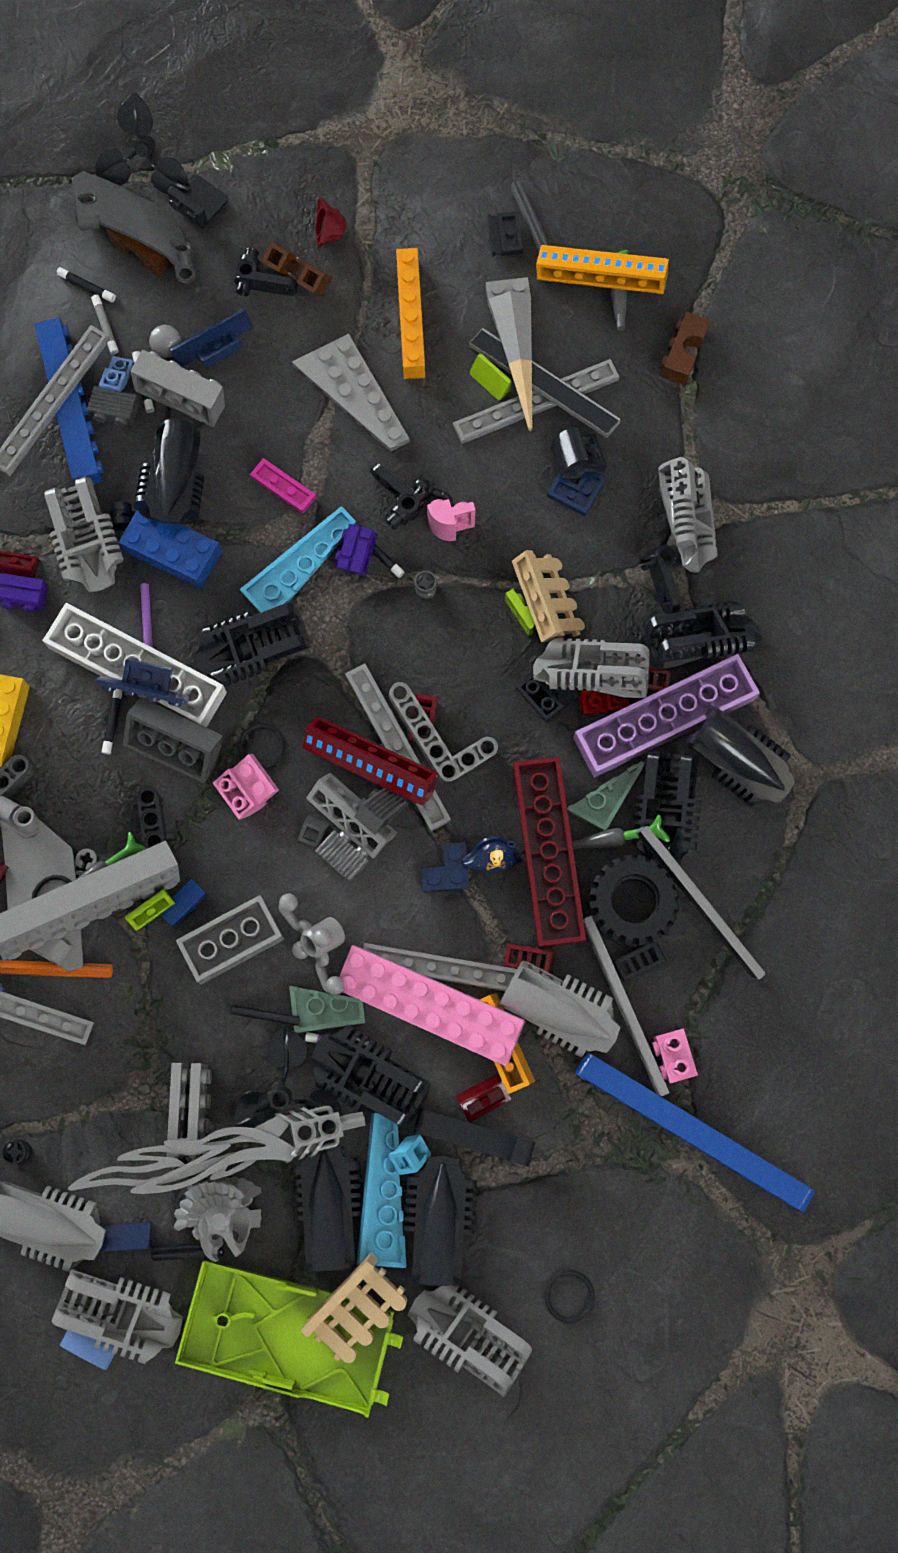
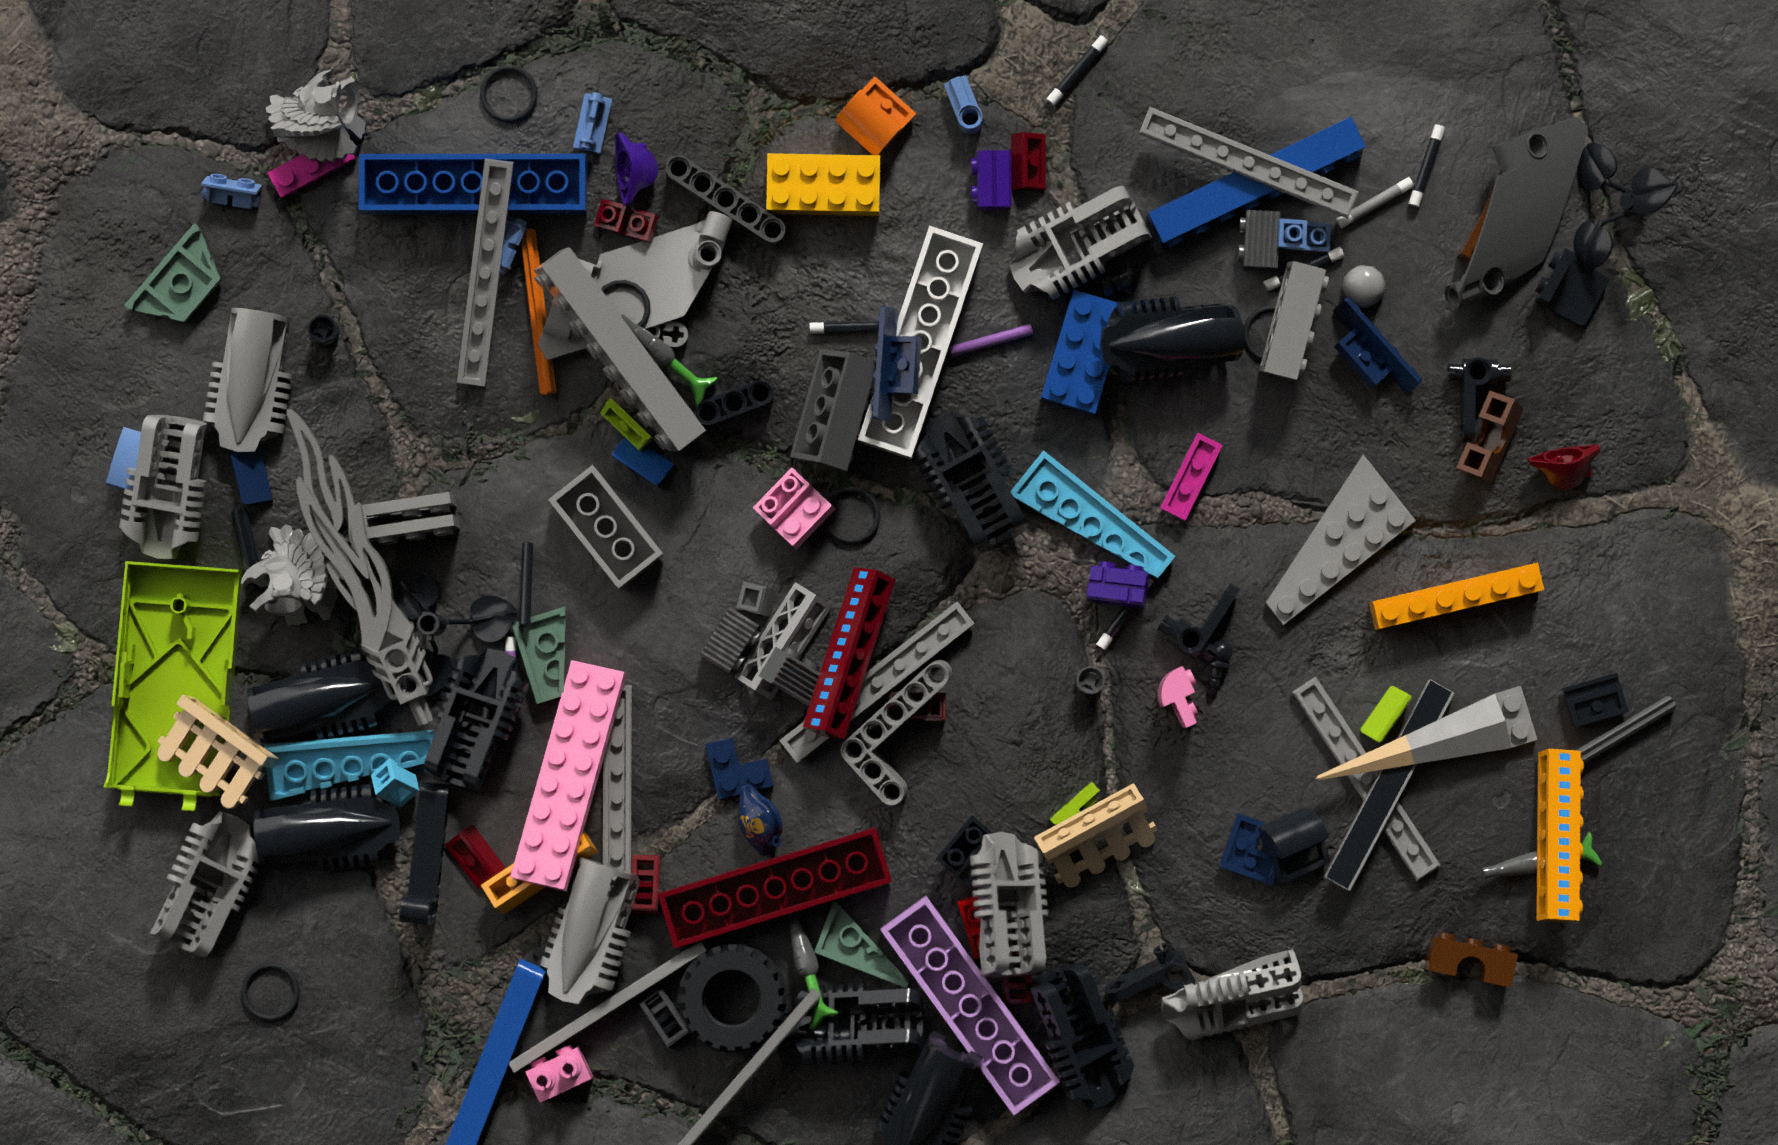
camera: 75 degrees right, 10 degrees up
(315, 941) = (620, 628): light grey wheel -> none

